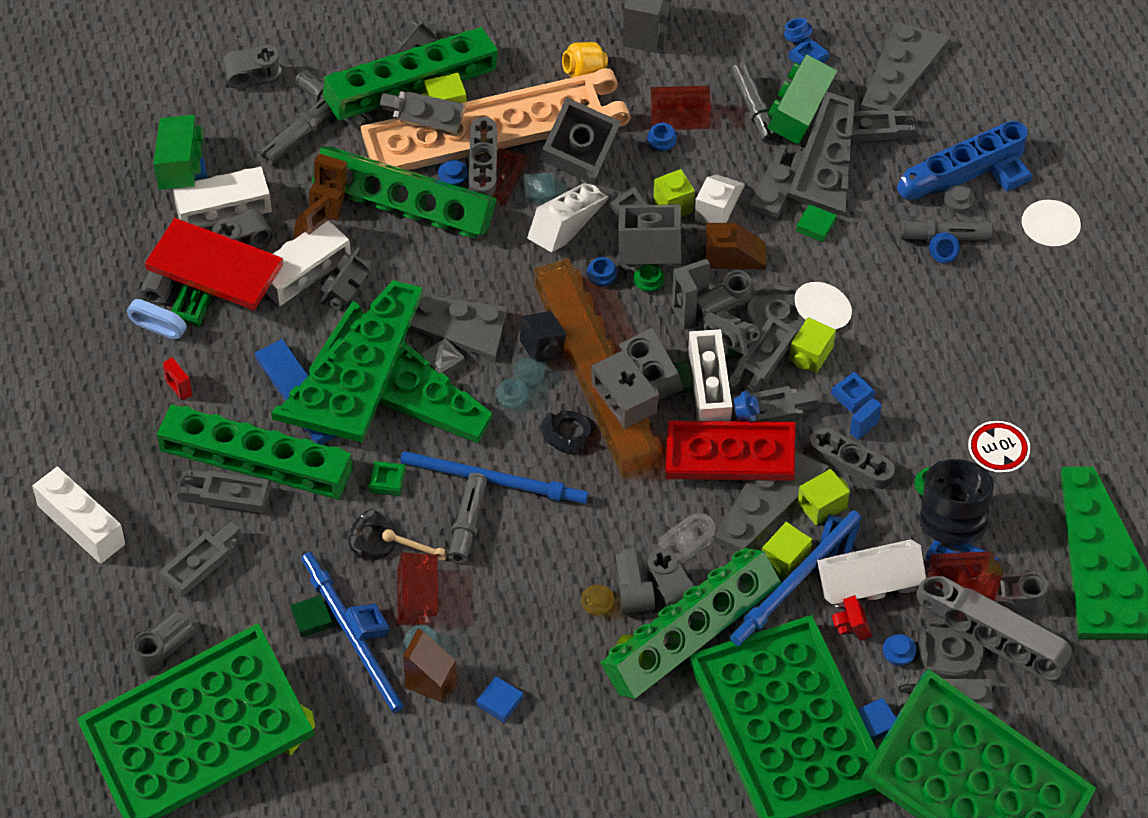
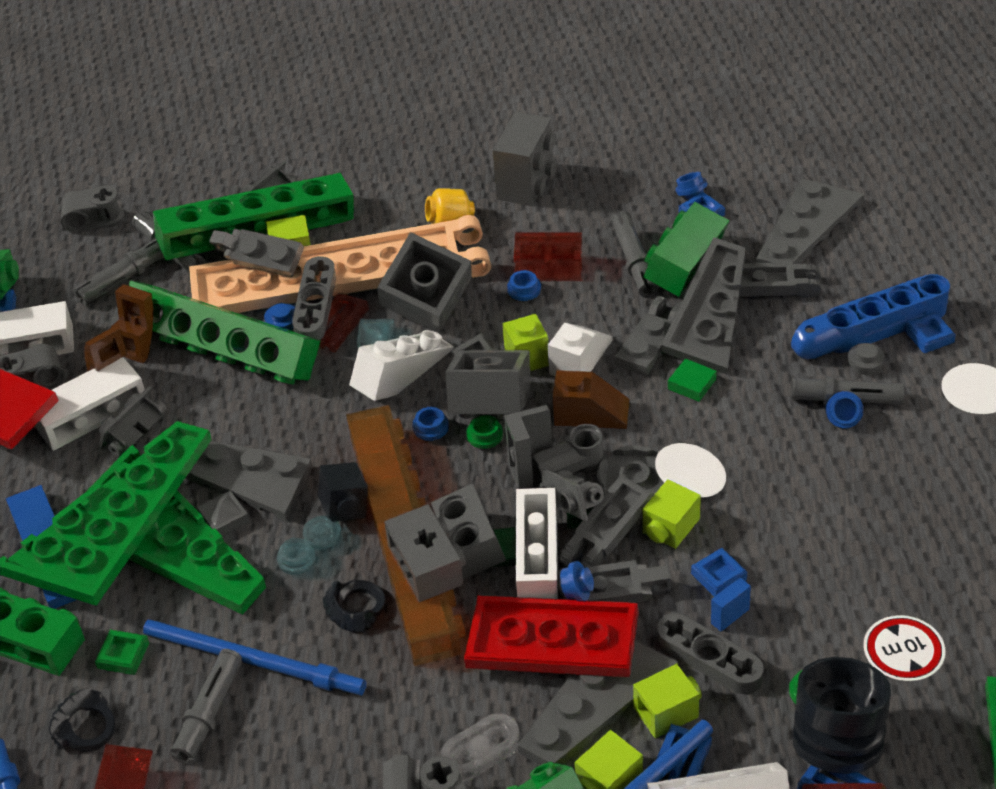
camera: 10 degrees right, 10 degrees down
(389, 535) = (102, 723): tan hinge -> none

